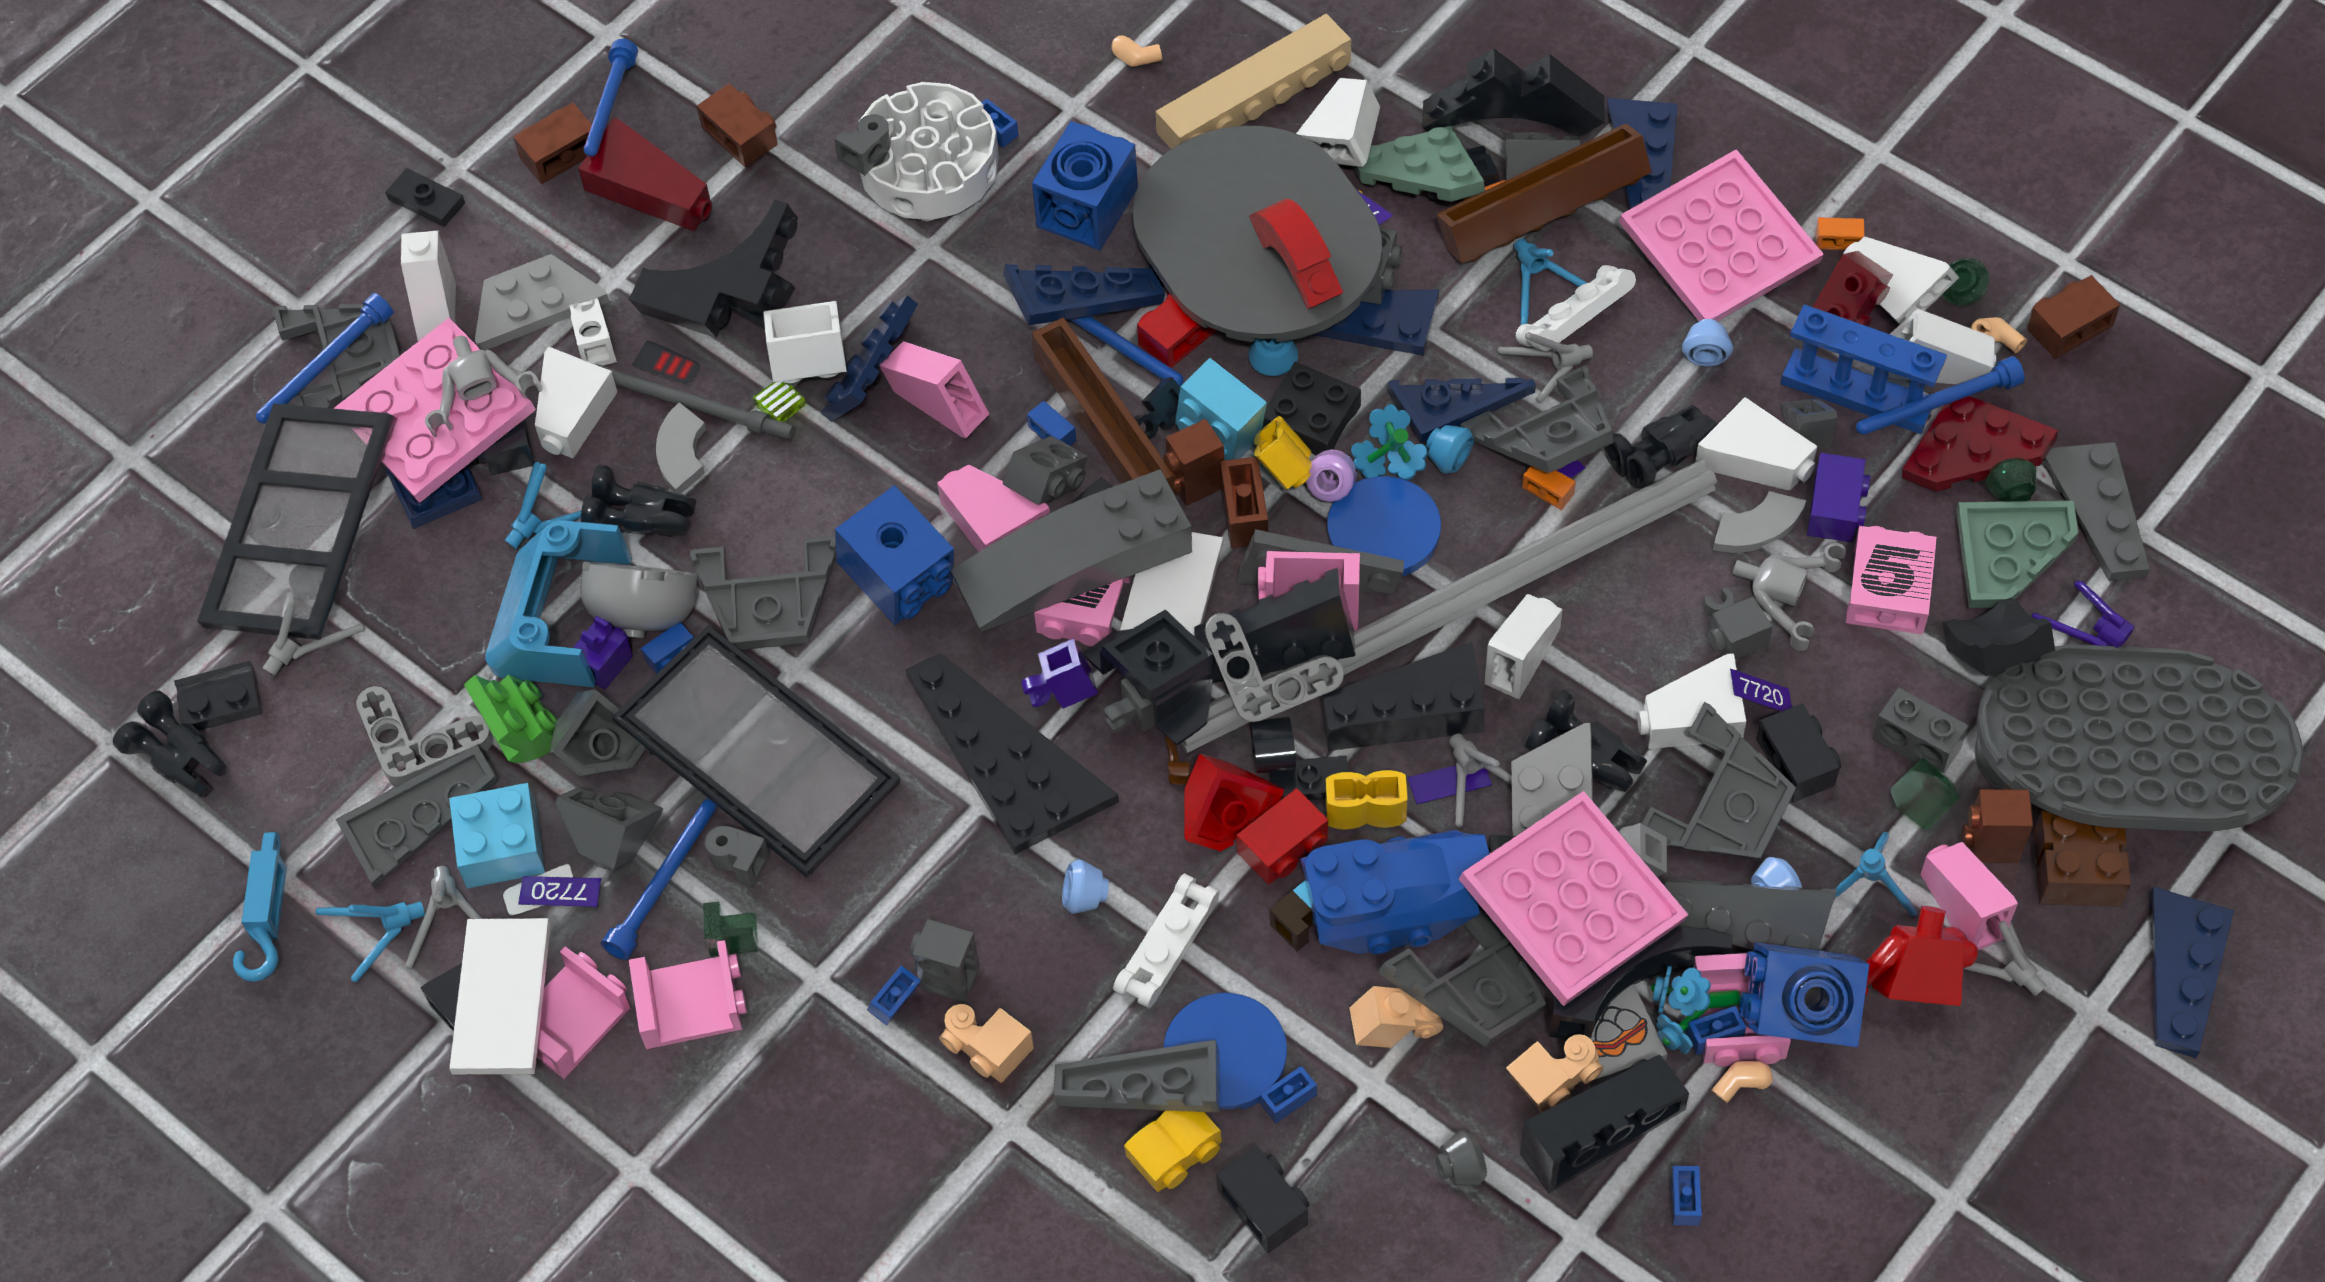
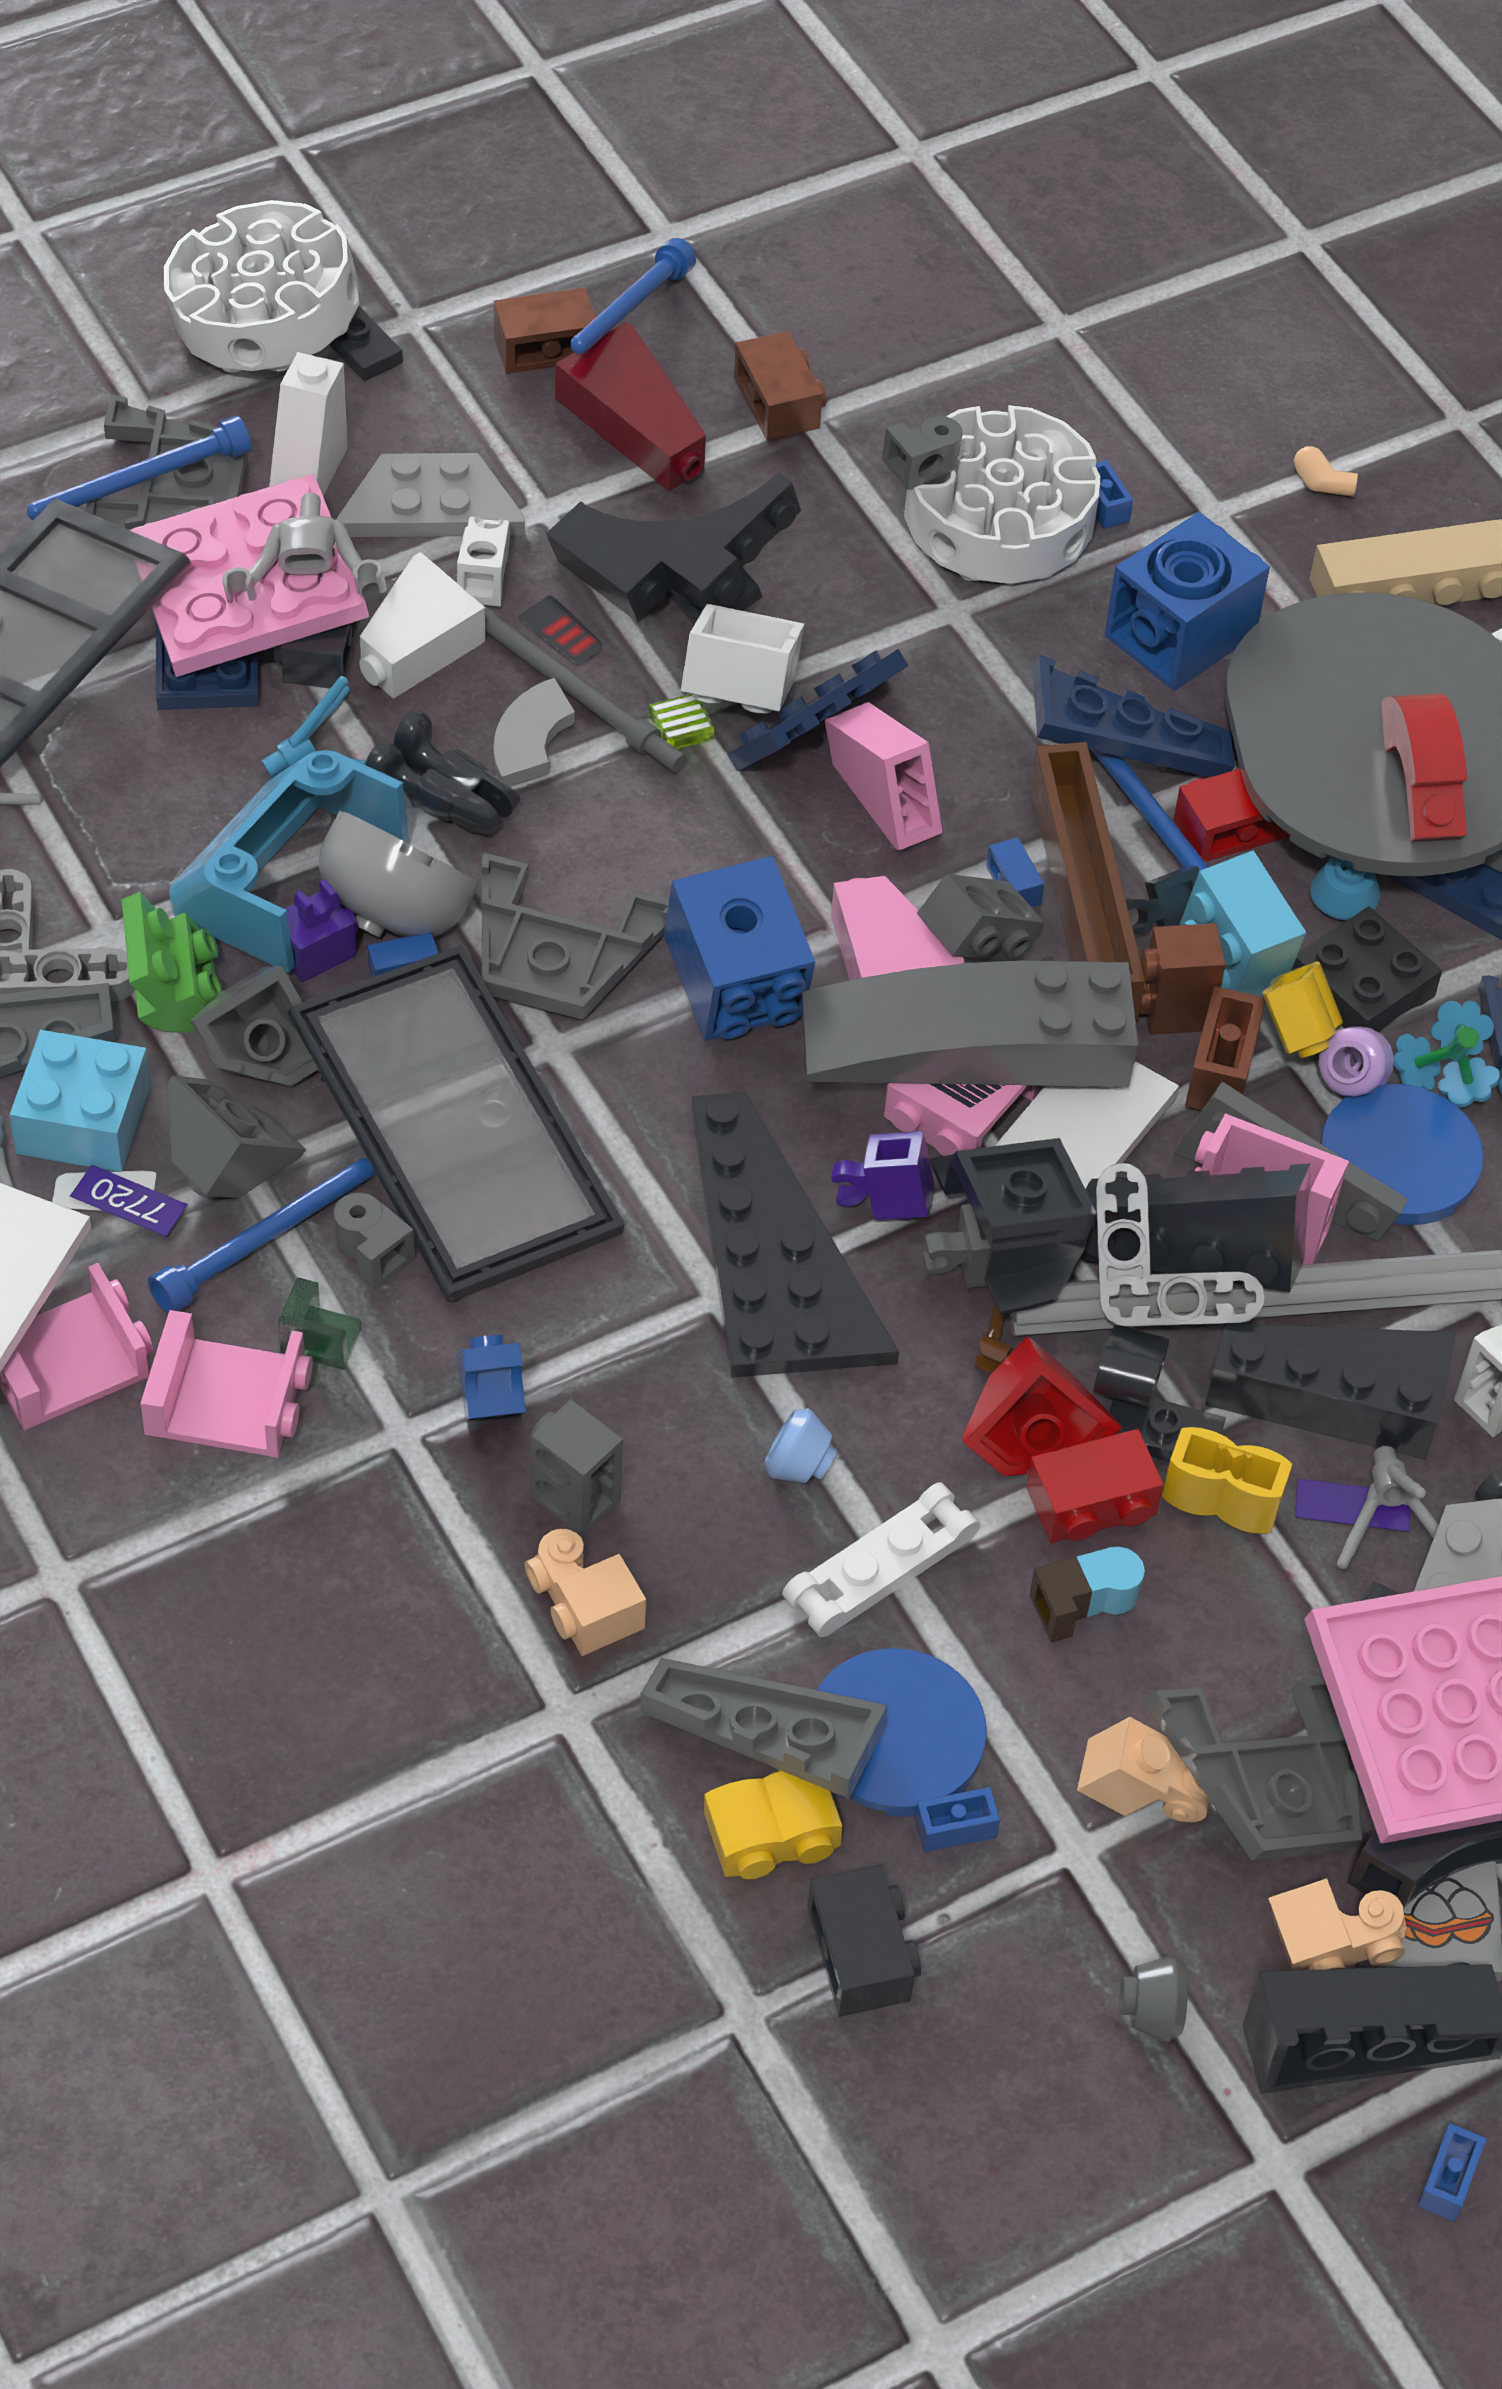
camera: 15 degrees right, 5 degrees down
(344, 186) = (261, 286): none -> white brick
(862, 920) = (491, 1377): none -> blue brick
(893, 995) = (490, 1488): blue piece -> none
(1391, 891) = (1206, 1609): blue slope -> none

